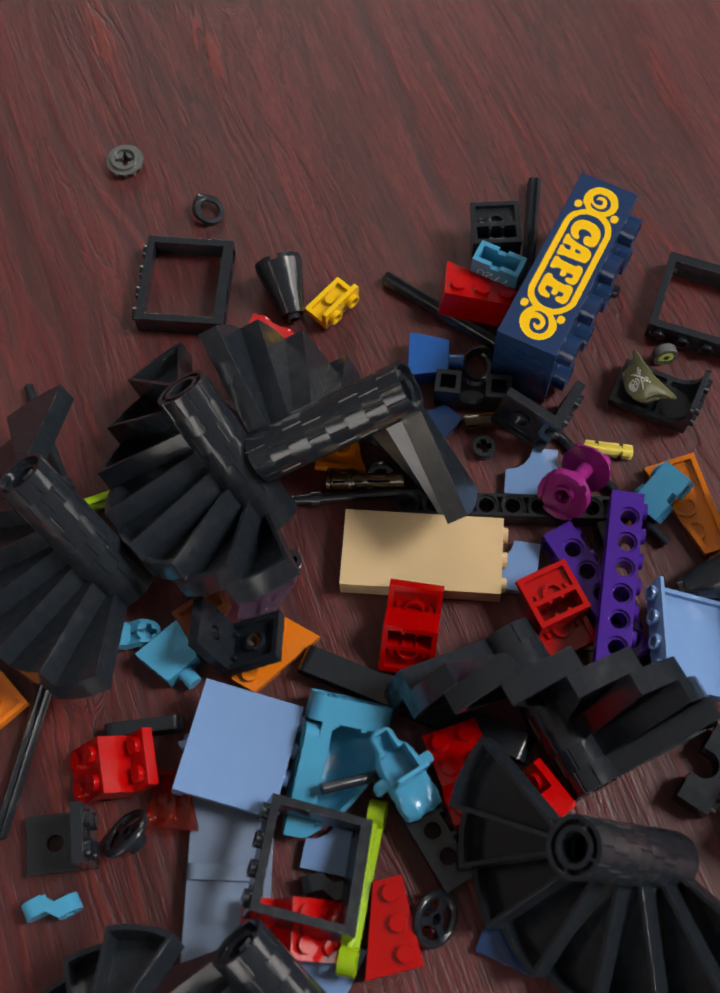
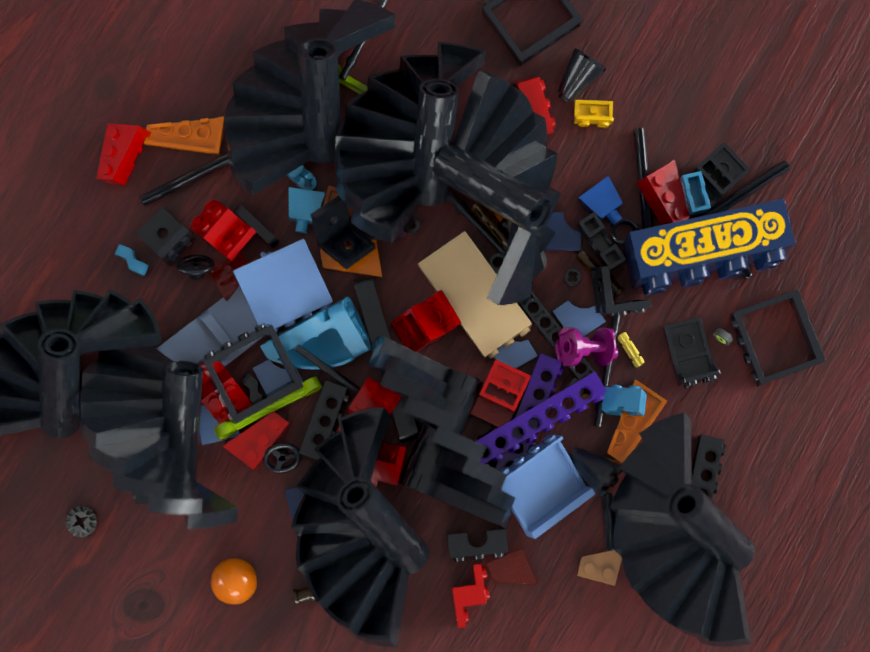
camera: 50 degrees right, 15 degrees up
(403, 775) = (338, 383): dark azure piece -> none
(642, 383) = (688, 338): olive hat -> none

